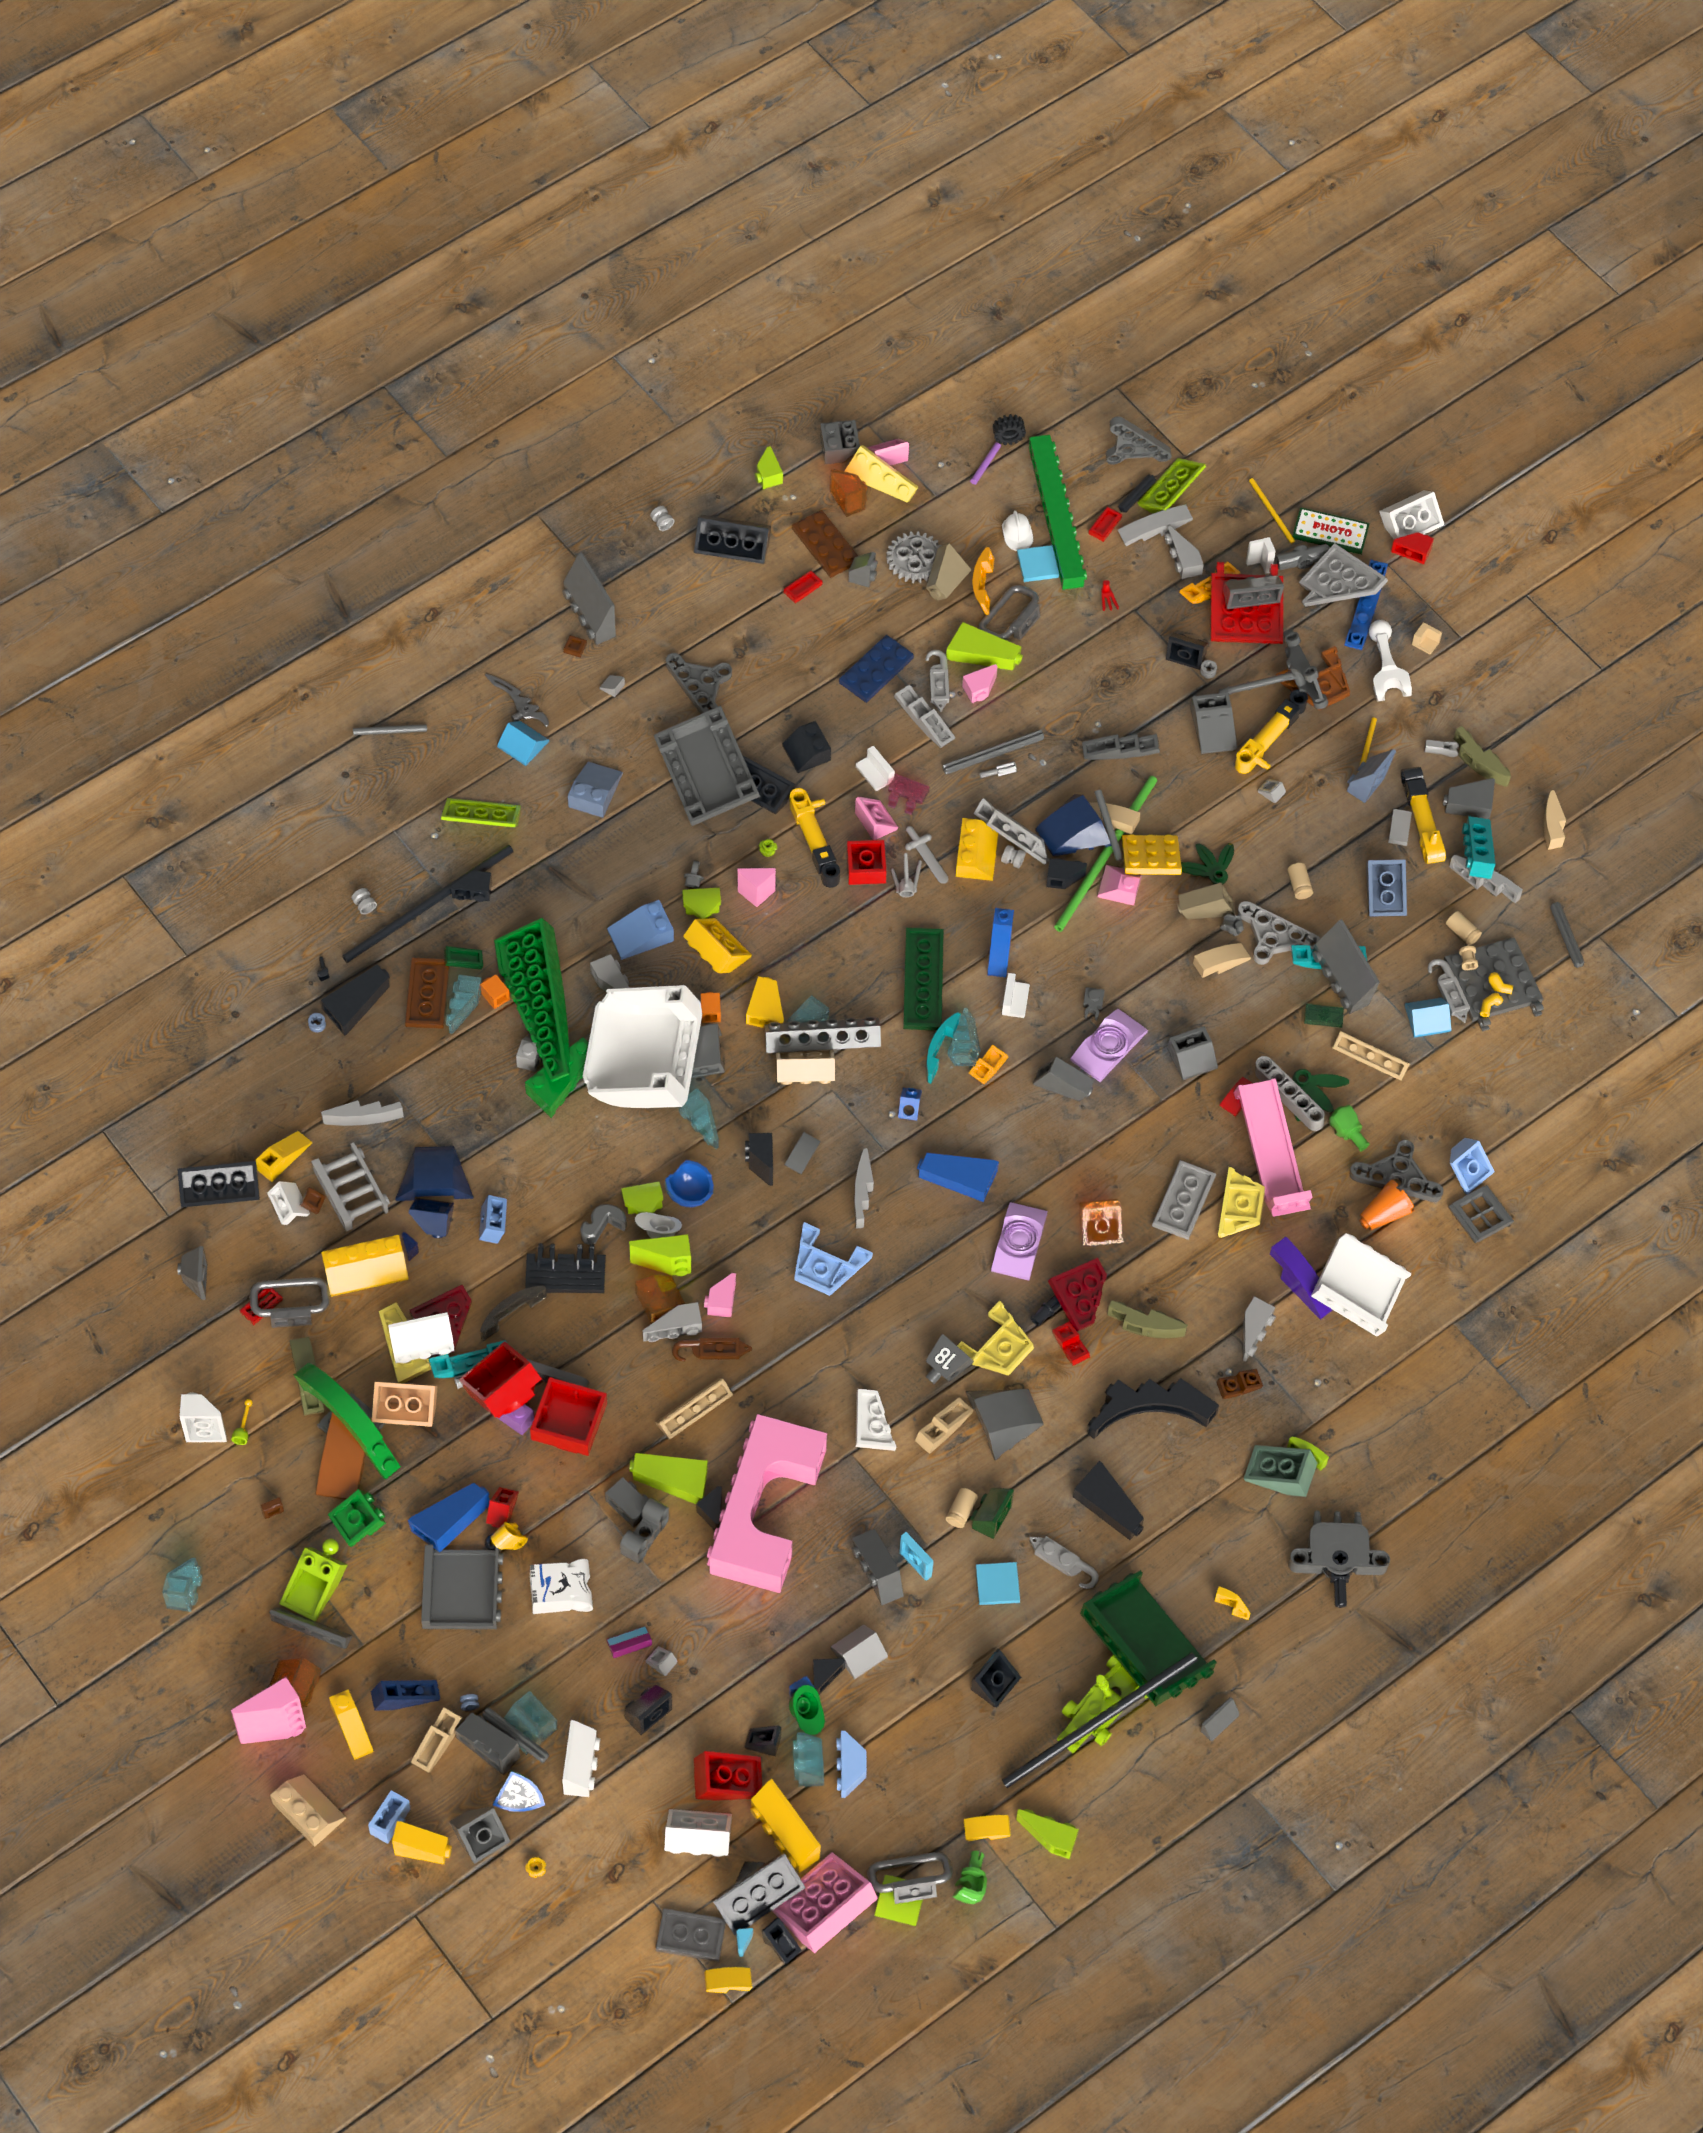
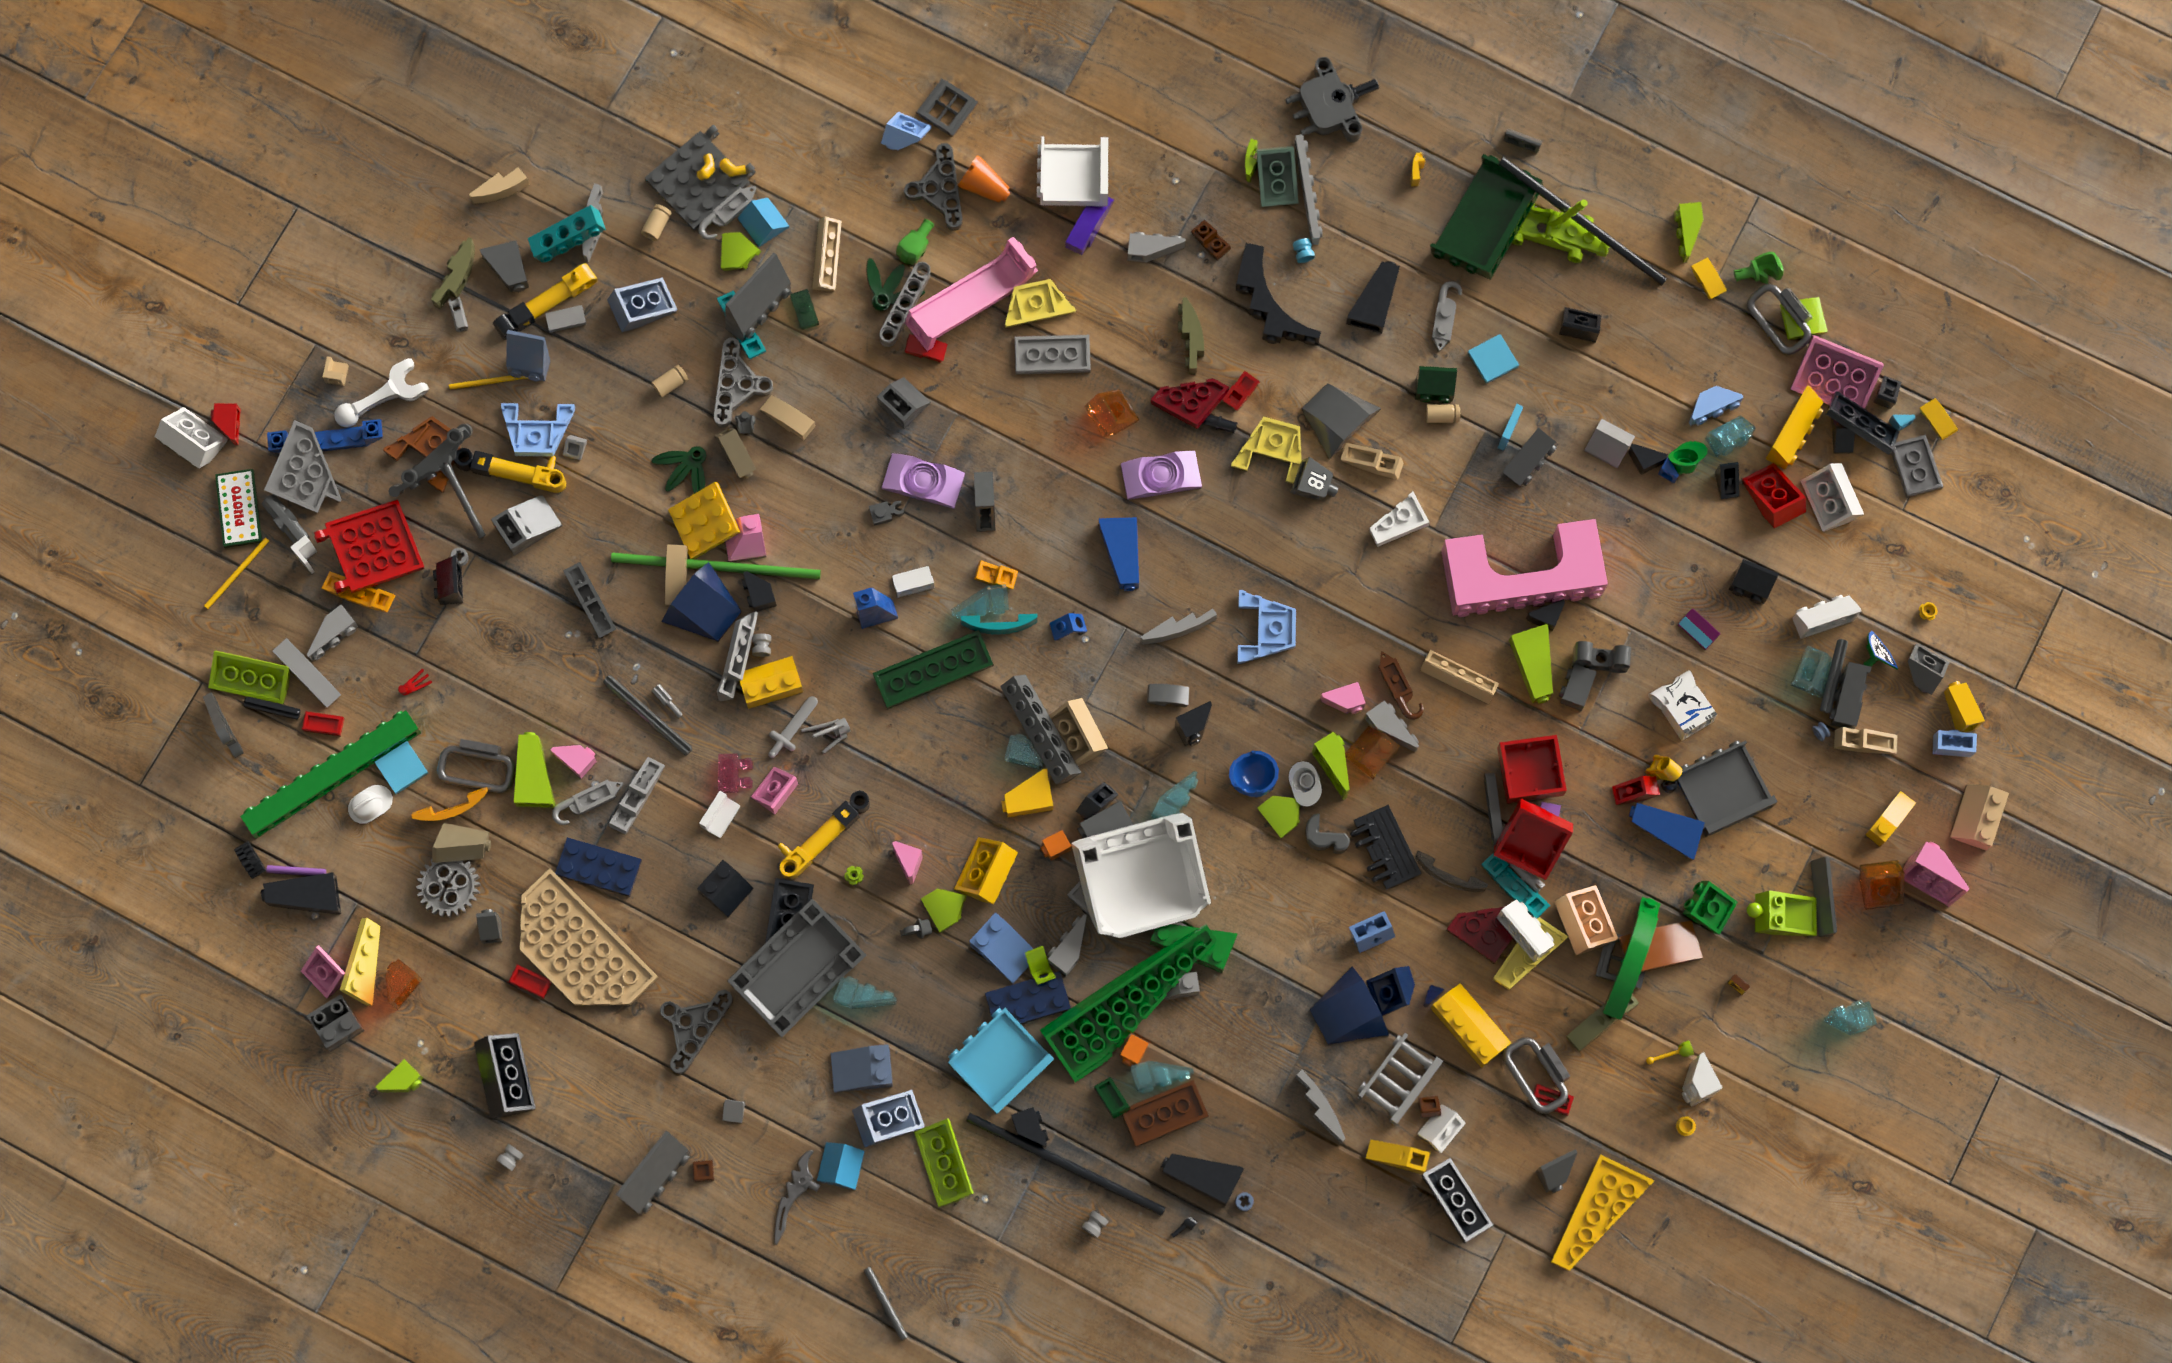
camera: 115 degrees left, 15 degrees up
(147, 1302) = (1603, 1201): none -> yellow wing
(171, 1403) = (1685, 1126): none -> yellow plate
(404, 1694) = (1843, 787): dark blue slope -> none
(541, 788) = (888, 1118): none -> sand blue slope
(544, 886) = (1000, 1060): none -> medium azure panel
(584, 932) = (1030, 1001): none -> dark blue plate
(616, 949) = (1039, 965): none -> lime bracket
(660, 806) = (856, 995): none -> clear light blue slope
(662, 1660) = (1700, 597): light grey slope -> none
(733, 1055) = (1096, 801): none -> black slope
(813, 627) = (578, 947): none -> tan plate
(825, 543) = (467, 983): reddish brown plate -> none
(866, 862) = (833, 773): red brick -> none
(960, 460) = (307, 893): none -> black slope
(1108, 824) = (692, 568): dark grey bar -> none
(1190, 1458) = (1303, 250): none -> medium azure wheel
(1246, 1488) = (1307, 182): none -> light grey plate
(1253, 591) = (360, 539): dark grey slope -> none
(1293, 761) = (536, 437): none -> light blue wing
(1406, 983) = (737, 251): none -> lime slope
(1468, 958) = (692, 202): tan bush -> none
(1567, 934) = (619, 135): dark grey axle -> none

